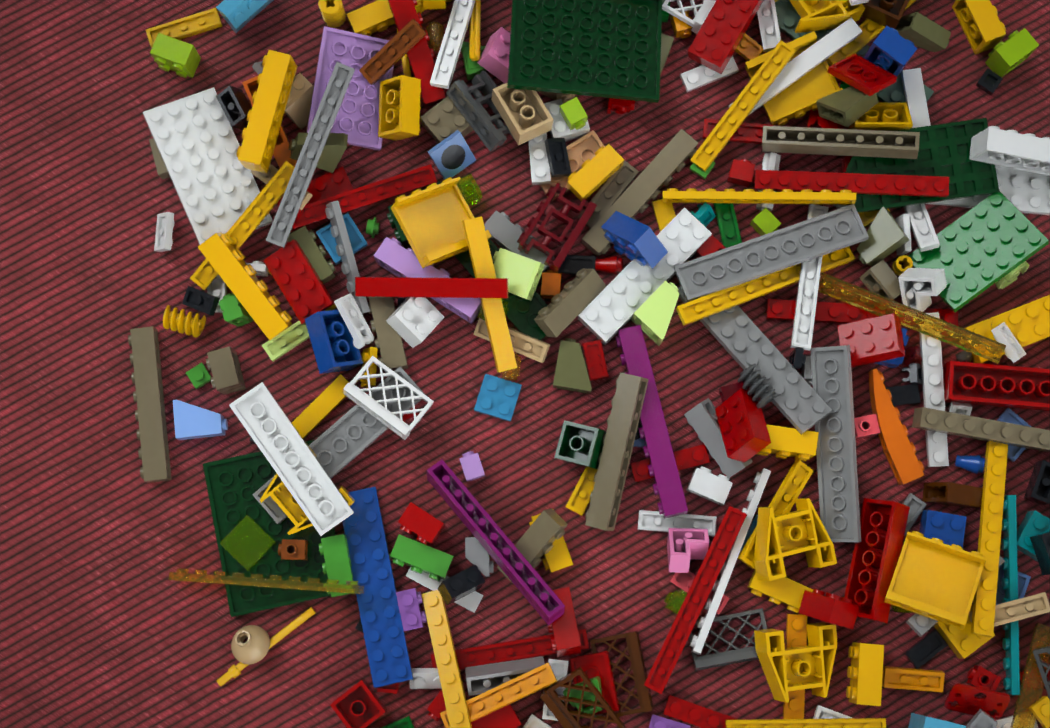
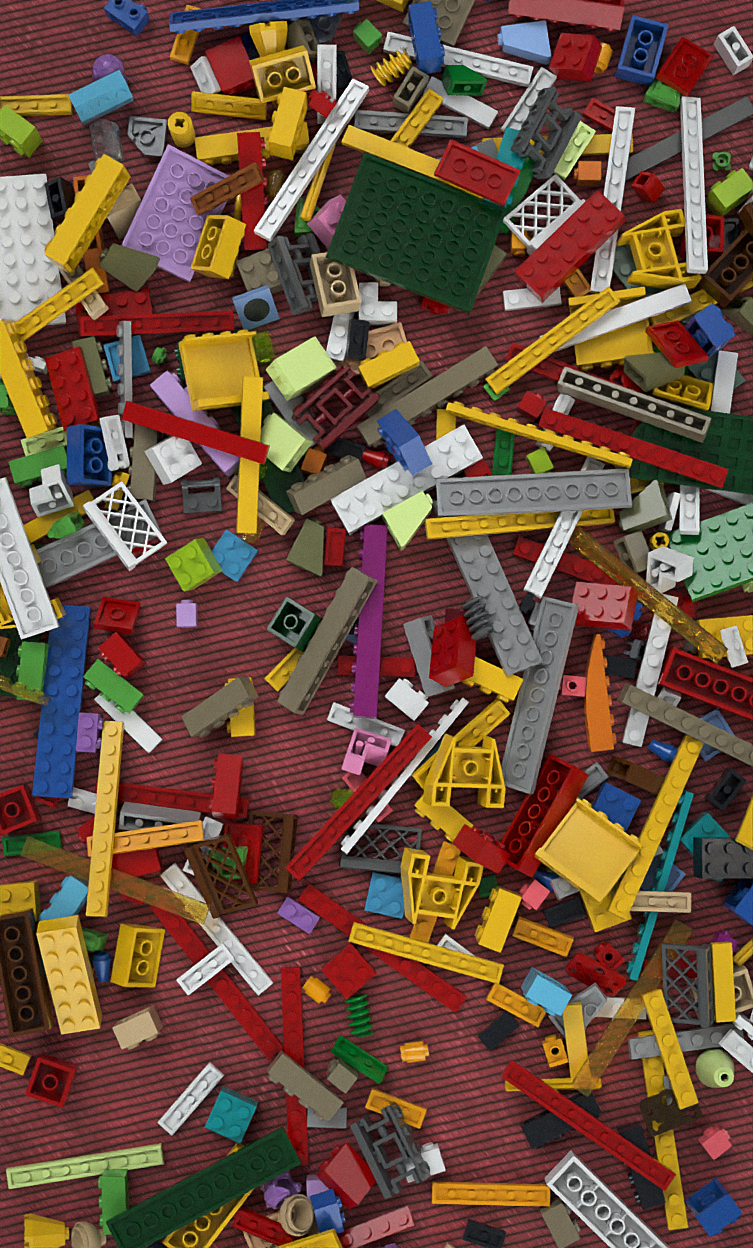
camera: 15 degrees right, 5 degrees up
(262, 38) = (106, 140): none -> clear brick
(288, 365) = (28, 468): none -> bright green brick
(301, 25) = (148, 135): none -> flat silver plate
(309, 387) = (53, 494): none -> white brick
(310, 154) = (116, 268): light grey plate -> none
(331, 414) = (66, 526): none -> bright green piece
(404, 487) = (117, 615): none -> red plate
(453, 354) = (202, 501): none -> dark grey plate
(461, 584) = (142, 723): black brick -> none
(464, 416) = (193, 564): none -> lime brick
(478, 556) = (168, 699): light grey slope -> none
(495, 542) = (185, 693): magenta brick -> none
(513, 199) = (301, 369): none -> yellowish green slope
(573, 114) = (384, 302): lime brick -> none
(704, 214) = (482, 437): teal tile -> none
(748, 684) = (385, 895): none -> dark azure plate
(844, 642) = (486, 885): none -> green tile
(892, 639) = (533, 894): none -> coral brick
(899, 621) = (544, 877): none -> blue cone

